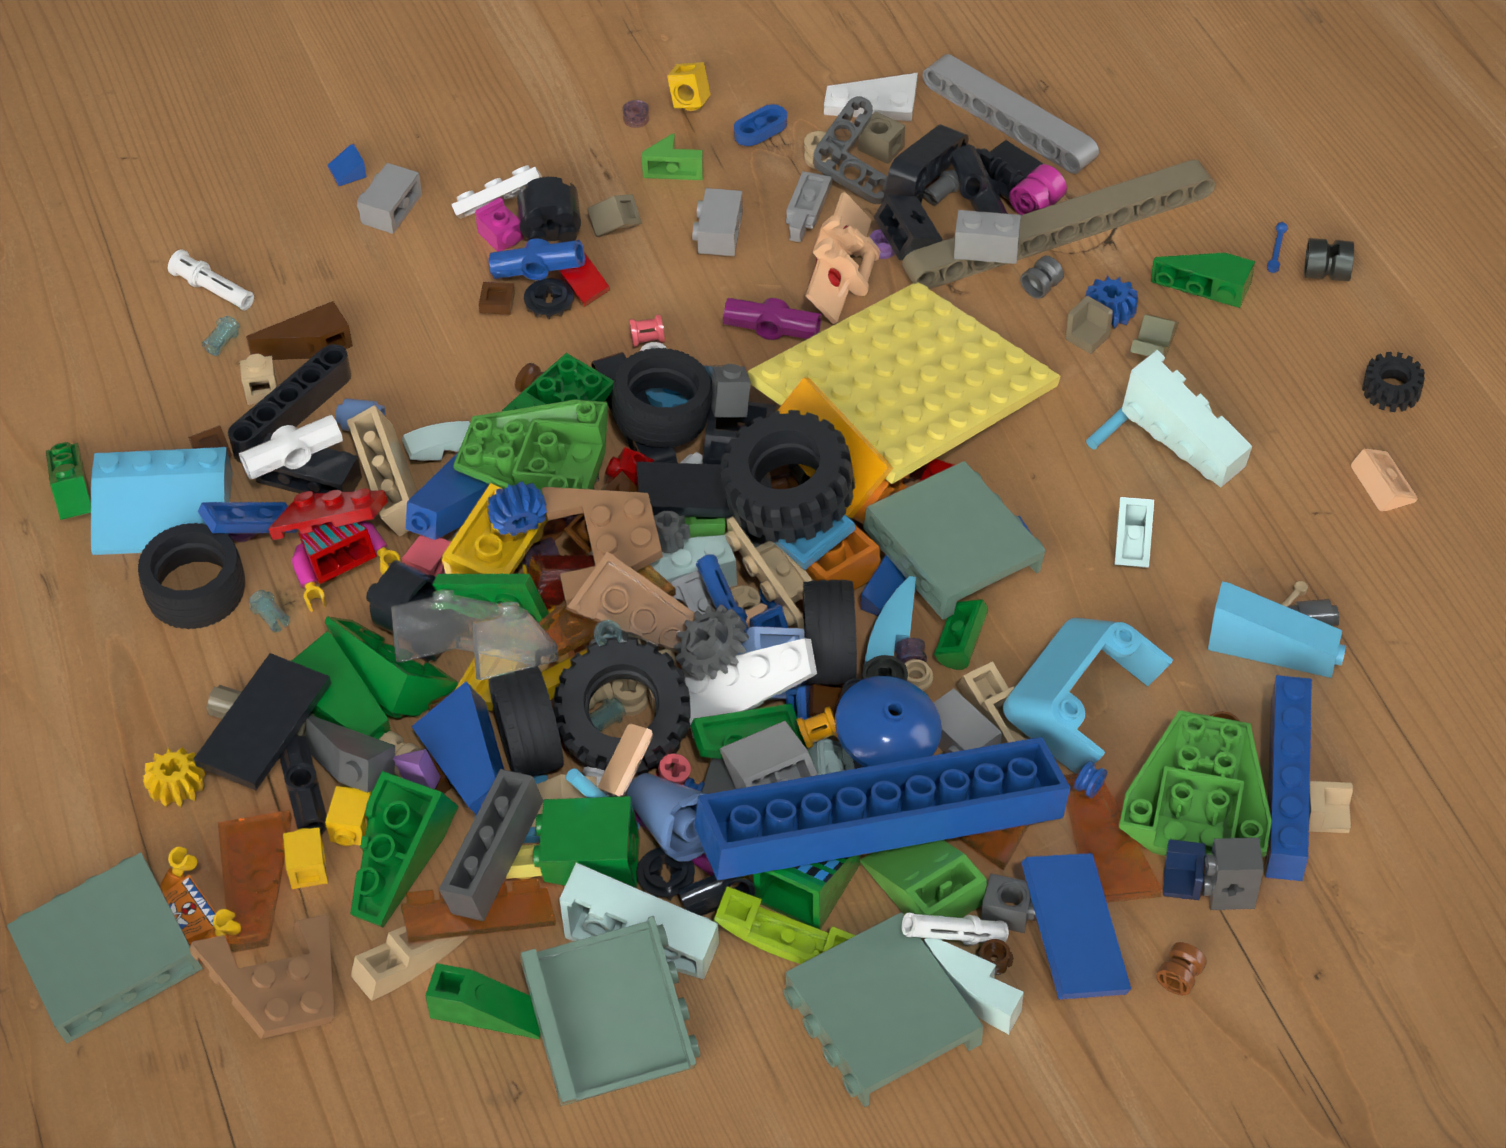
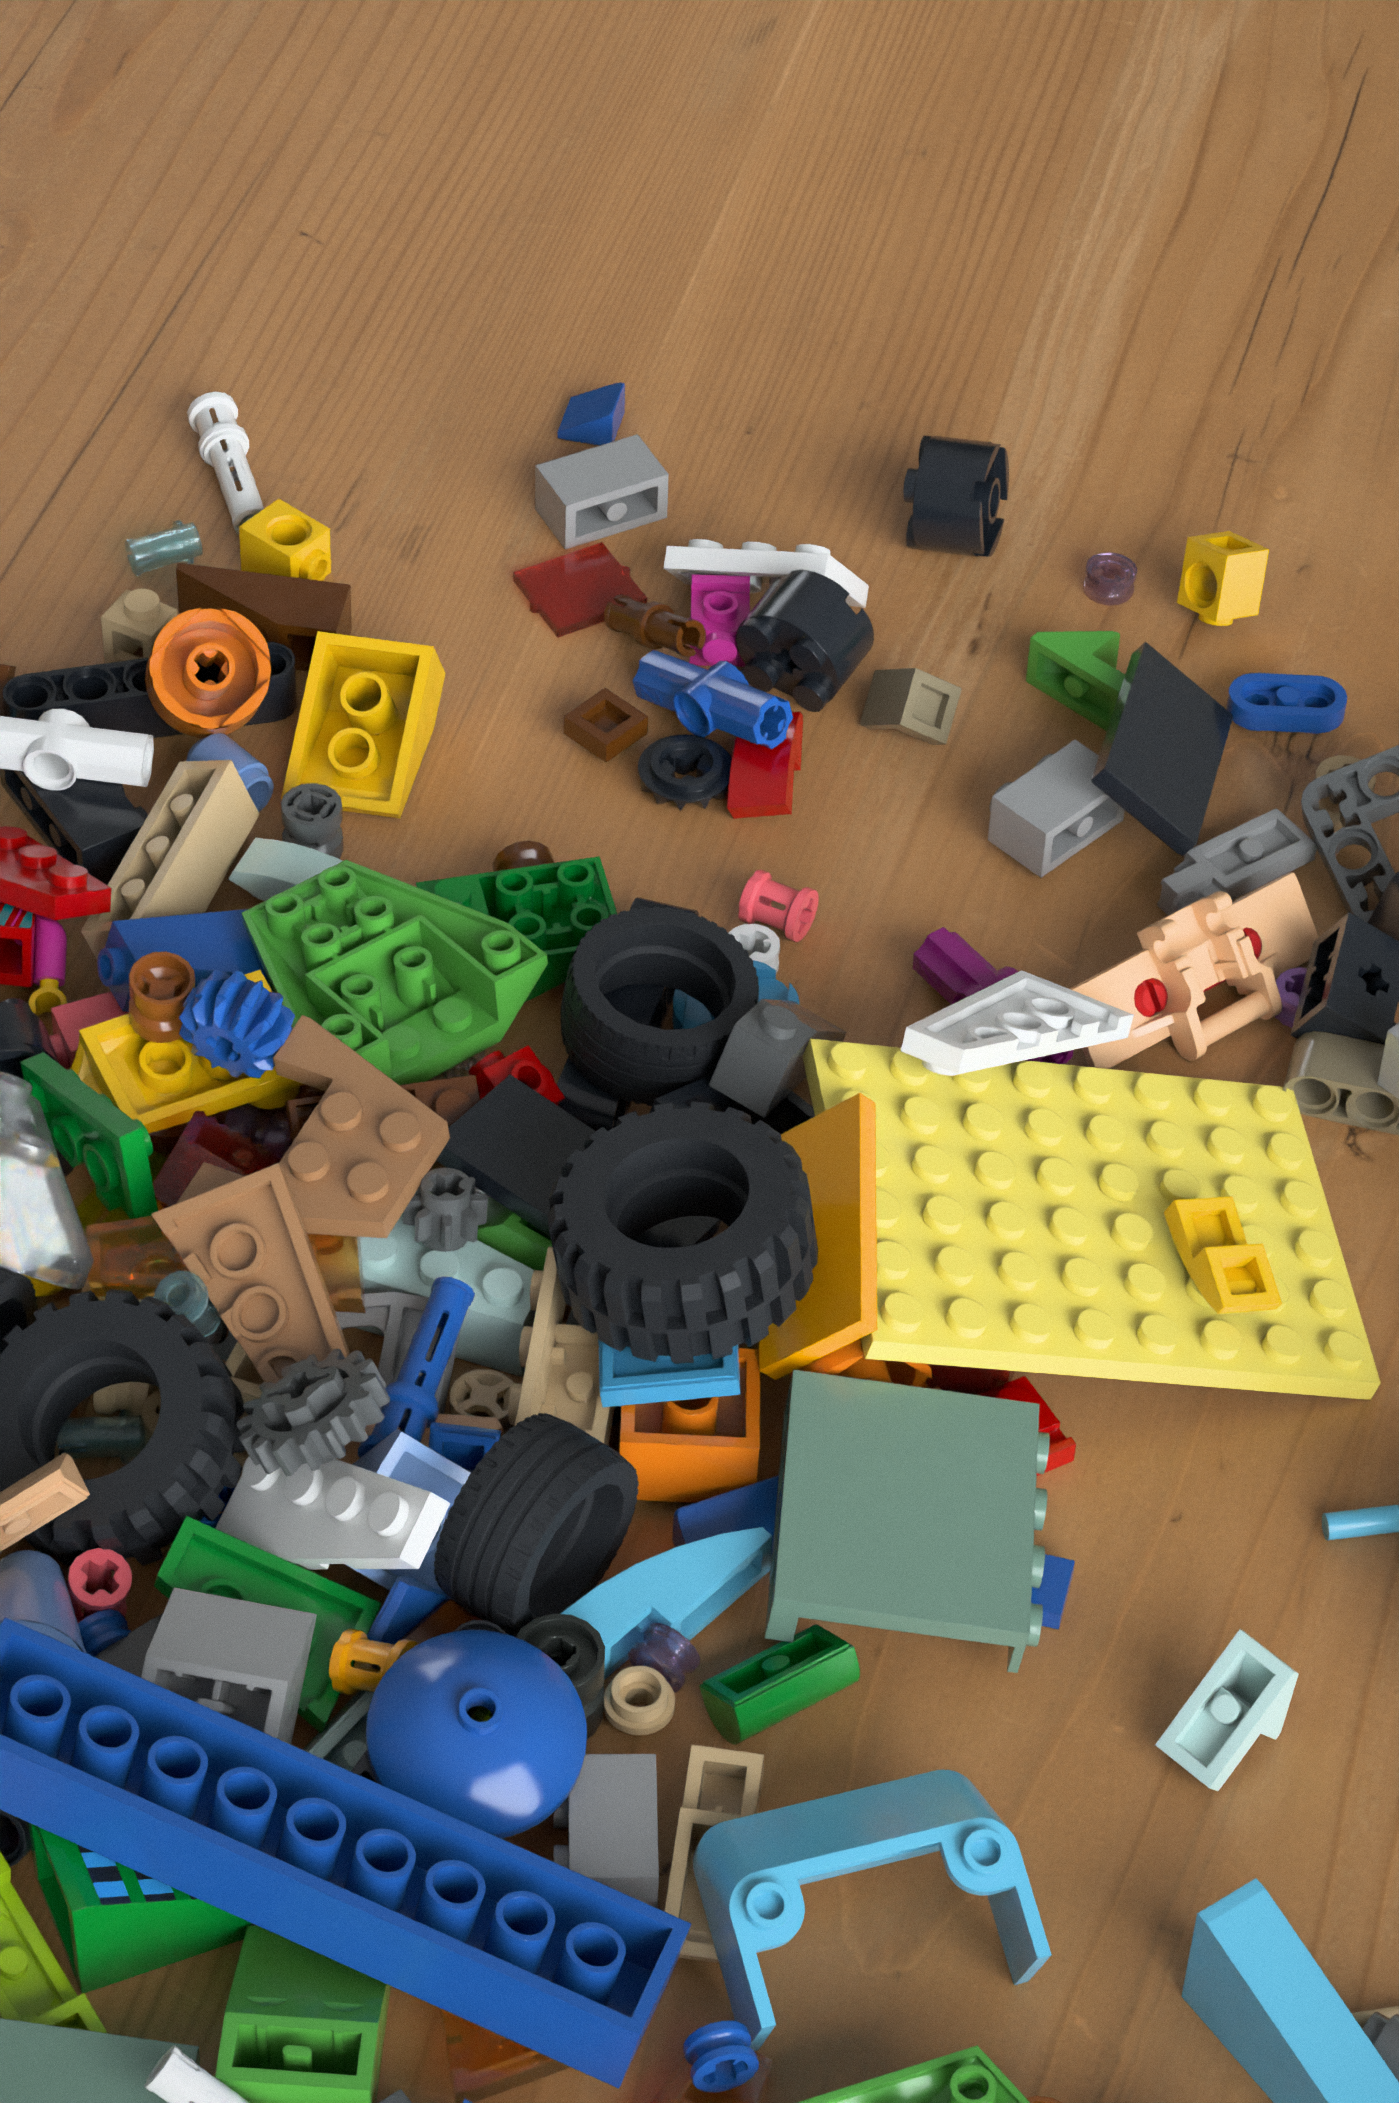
camera: 35 degrees right, 5 degrees down
(279, 302) = (285, 543): none -> yellow brick
(324, 373) = (208, 638): none -> orange brick
(397, 359) = (366, 720): none -> yellow slope
(419, 247) = (576, 588): none -> clear red piece
(419, 411) = (313, 818): none -> dark grey wheel
(470, 518) = (157, 994): none -> dark orange wheel
(476, 242) = (655, 625): none -> reddish brown pin
(548, 112) = (956, 496): none -> black brick
(741, 171) = (1162, 749): none -> black tile
(813, 317) = (1010, 1024): none -> white wing
(980, 366) = (1217, 1255): none -> yellow slope

